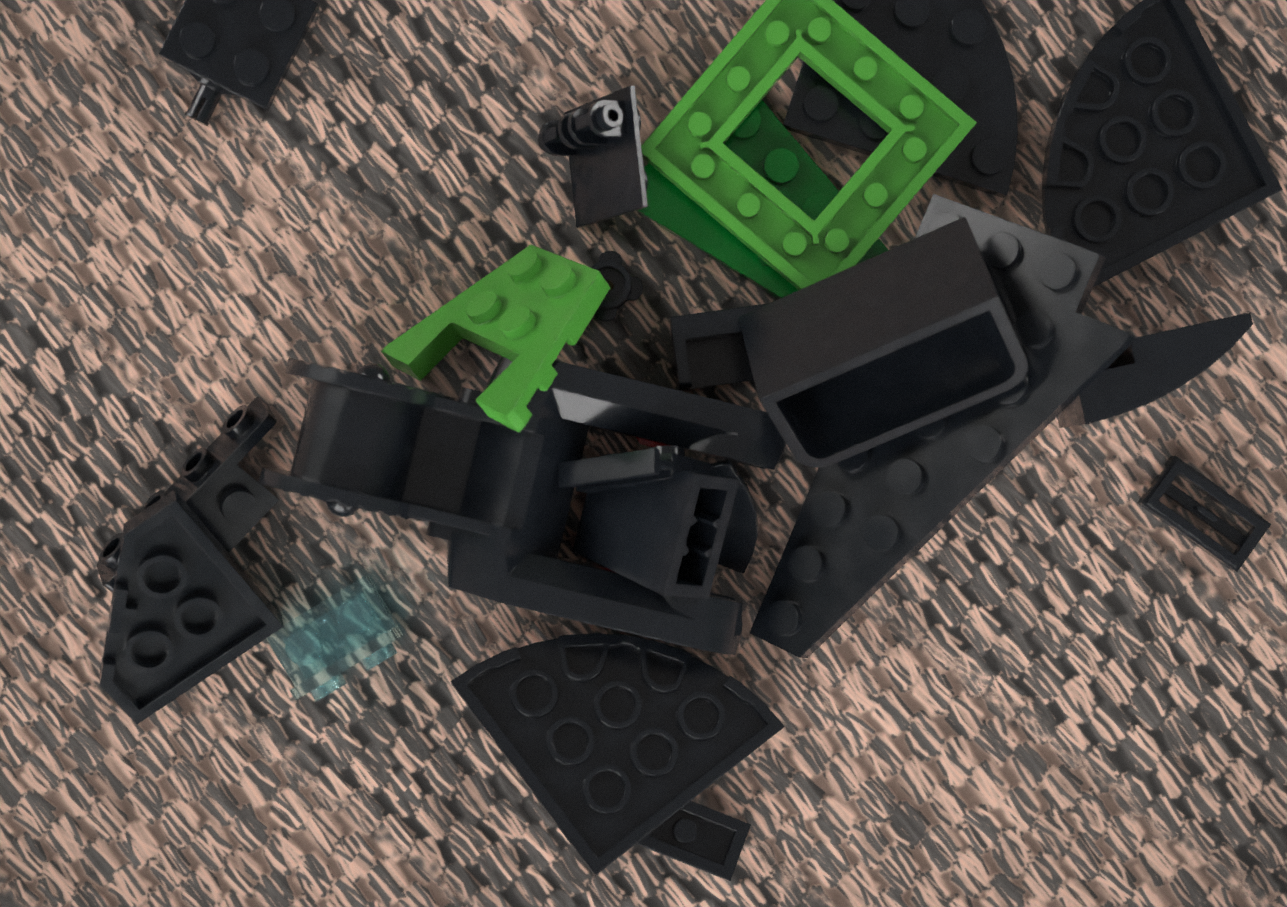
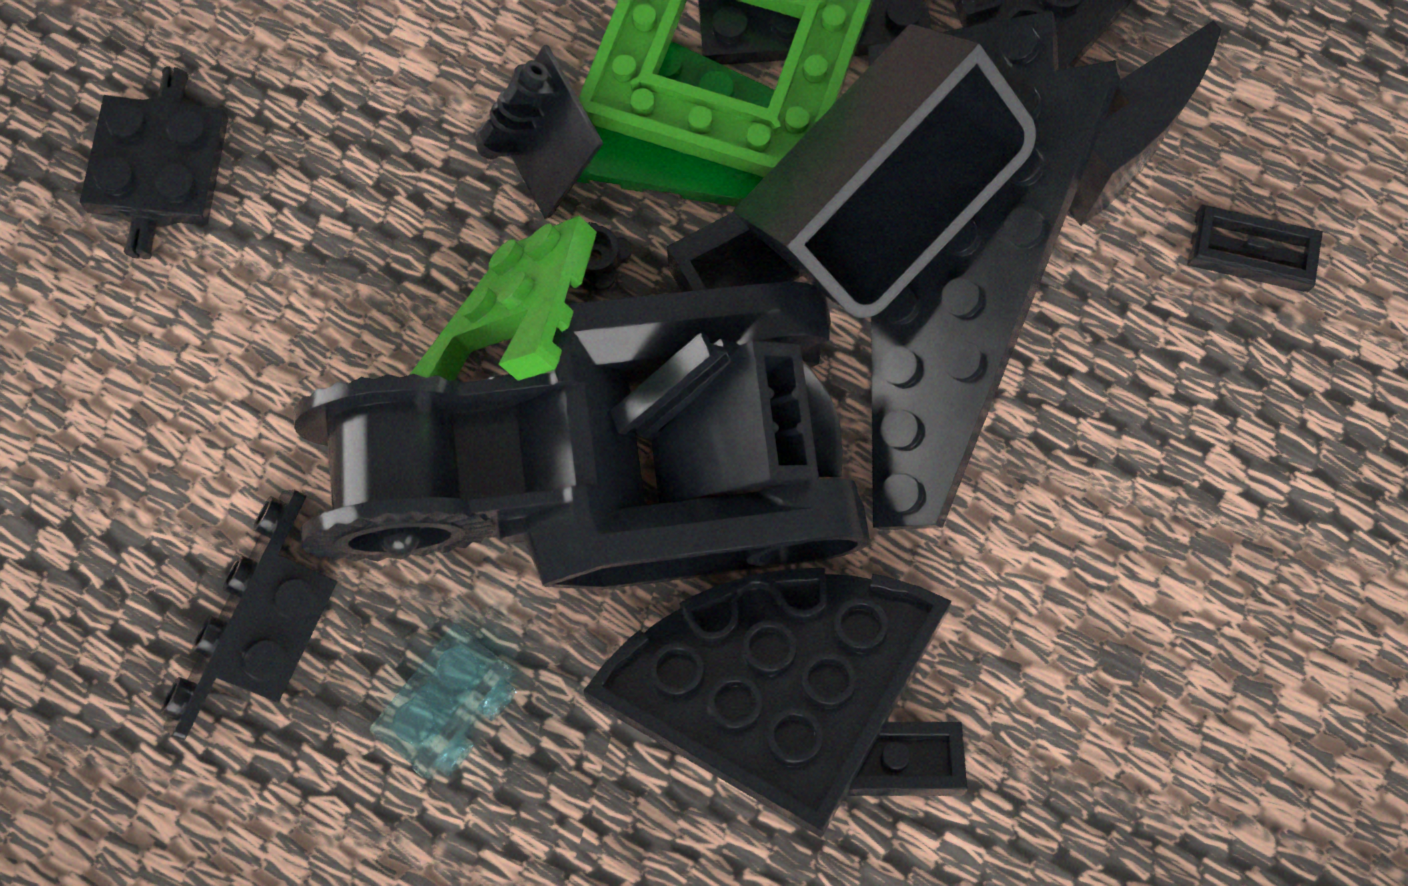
camera: 20 degrees left, 15 degrees down
(176, 610) = (258, 732): black plate -> none

